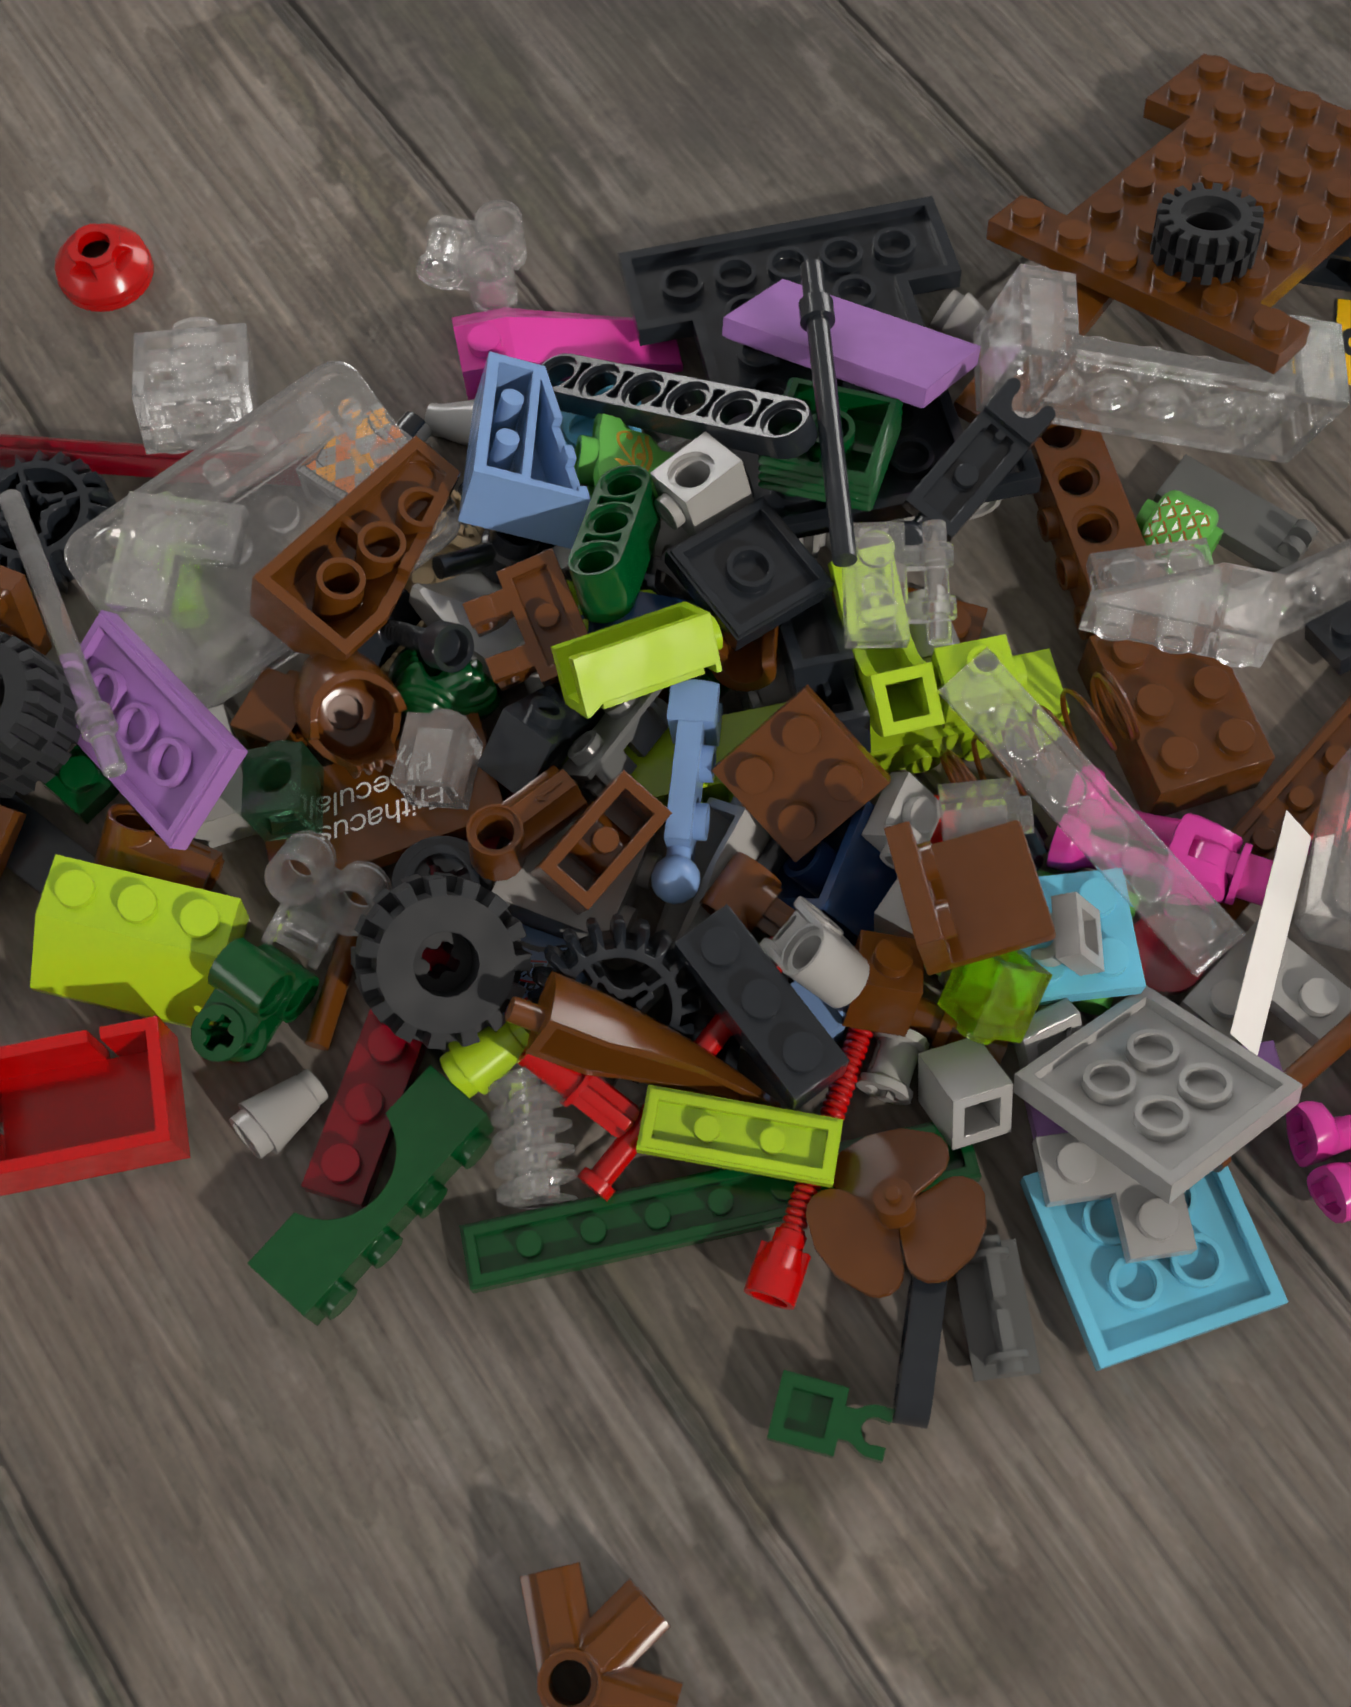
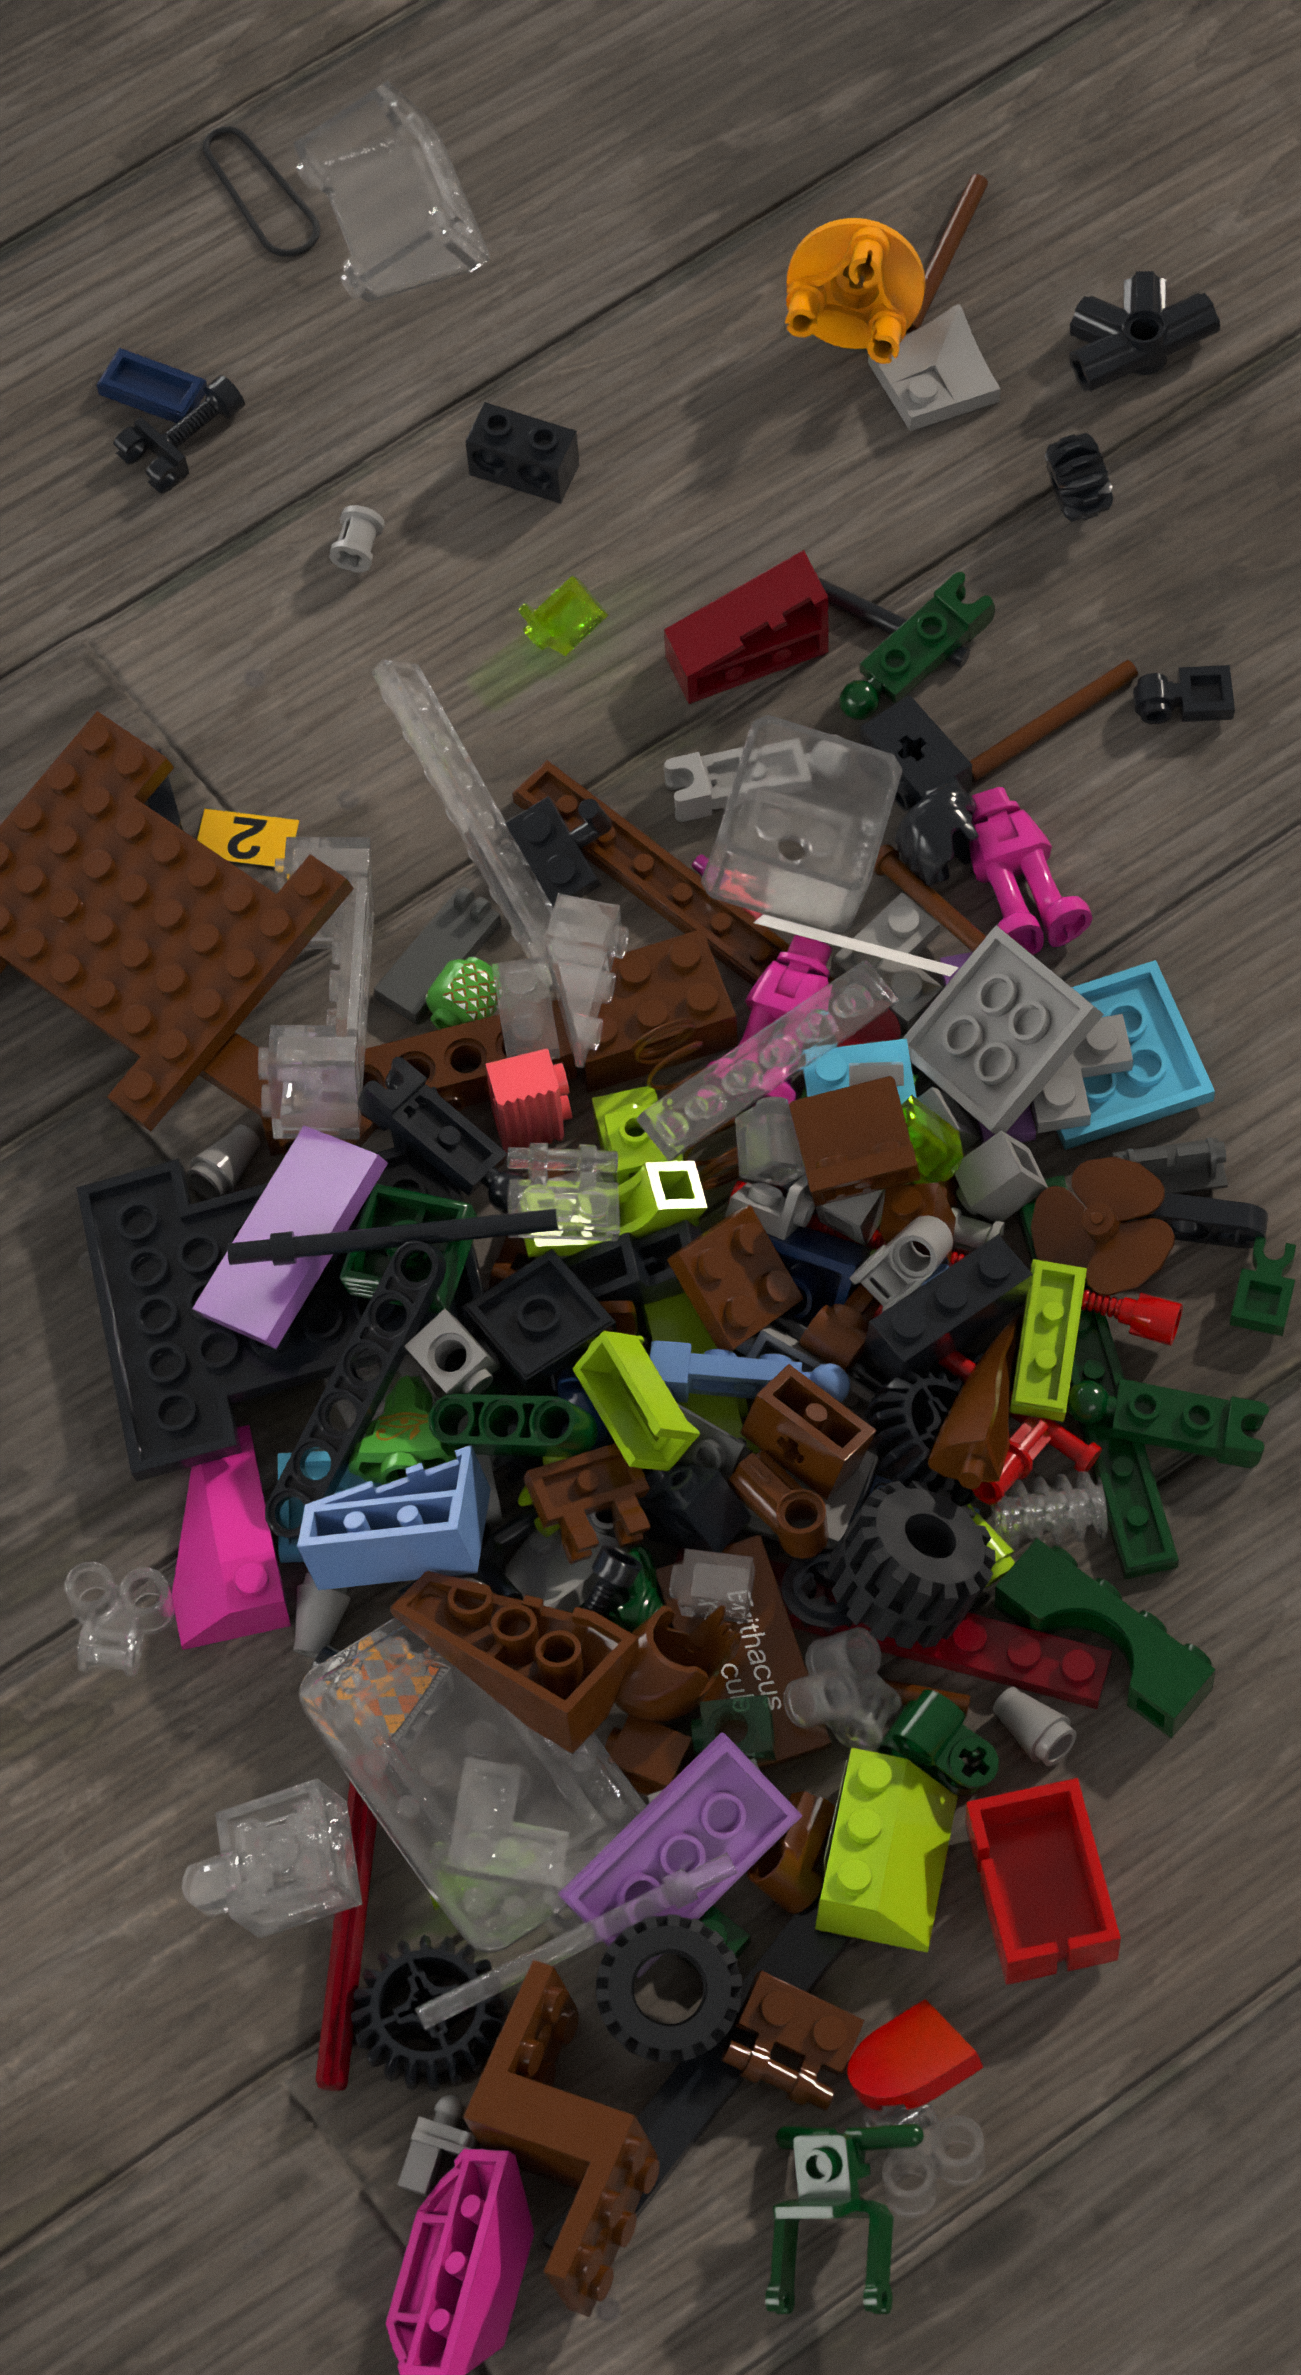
camera: 90 degrees left, 5 degrees down
(107, 280) = (102, 2032): red piece -> none
(646, 1285) = (1174, 1419): none -> dark green plate
(1044, 583) = (528, 1099): none -> coral brick
(1206, 233) = (192, 907): black tyre -> none

